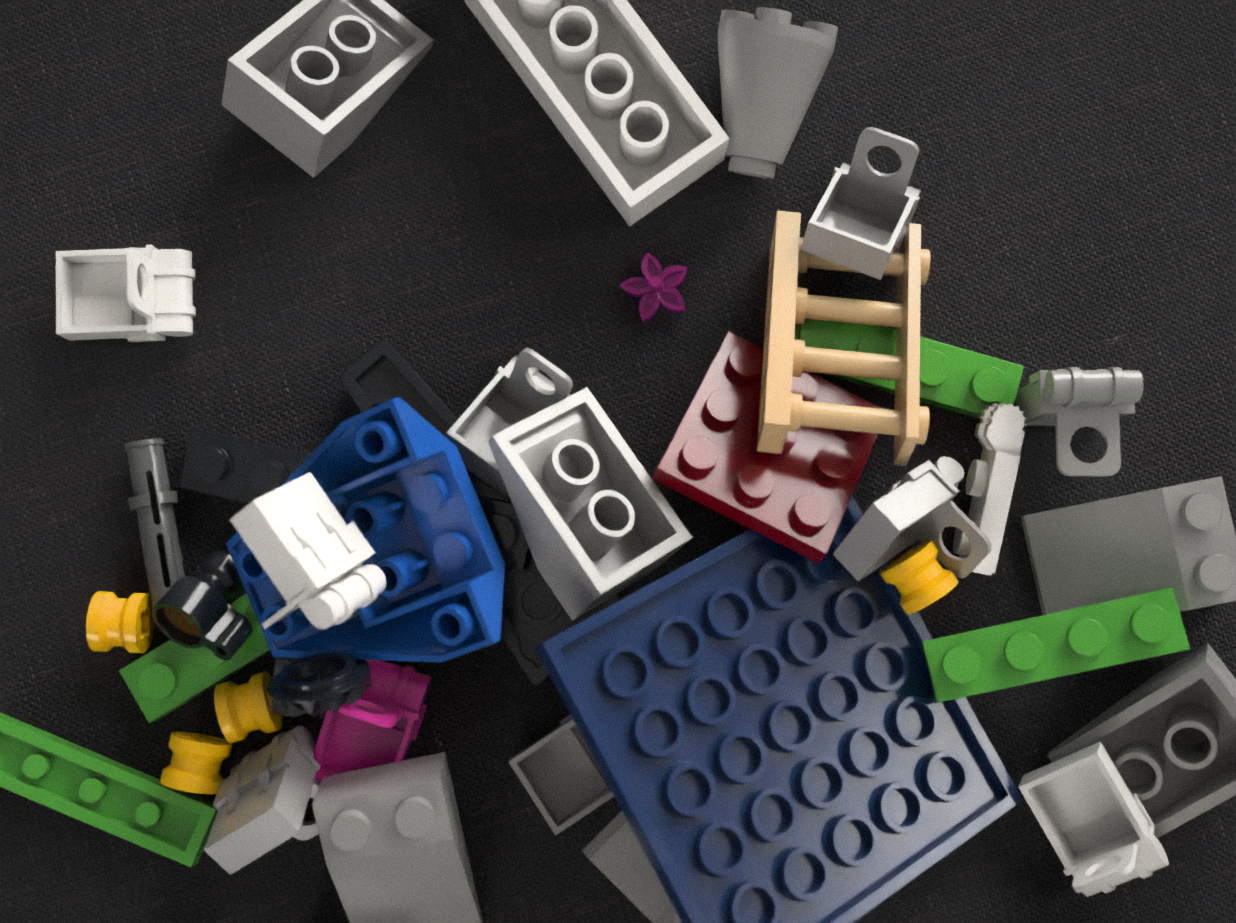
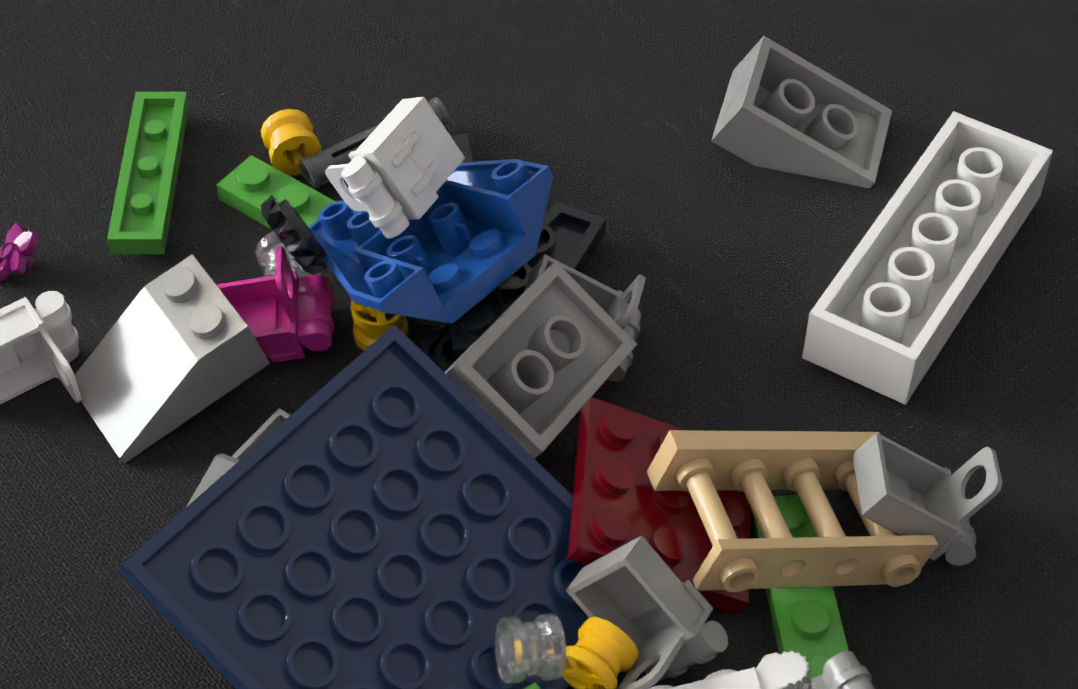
camera: 70 degrees right, 35 degrees down
(124, 294) = (552, 66): white piece -> none
(195, 762) = (195, 218): yellow wheel -> none
(198, 612) = (308, 171): black piece -> none
(245, 708) = (244, 230): yellow wheel -> none
(265, 801) = (174, 238): light grey piece -> none
(656, 287) = (761, 395): magenta plant -> none
(767, 83) = (988, 393): light grey cone -> none
(900, 636) = (530, 648): none -> clear wheel

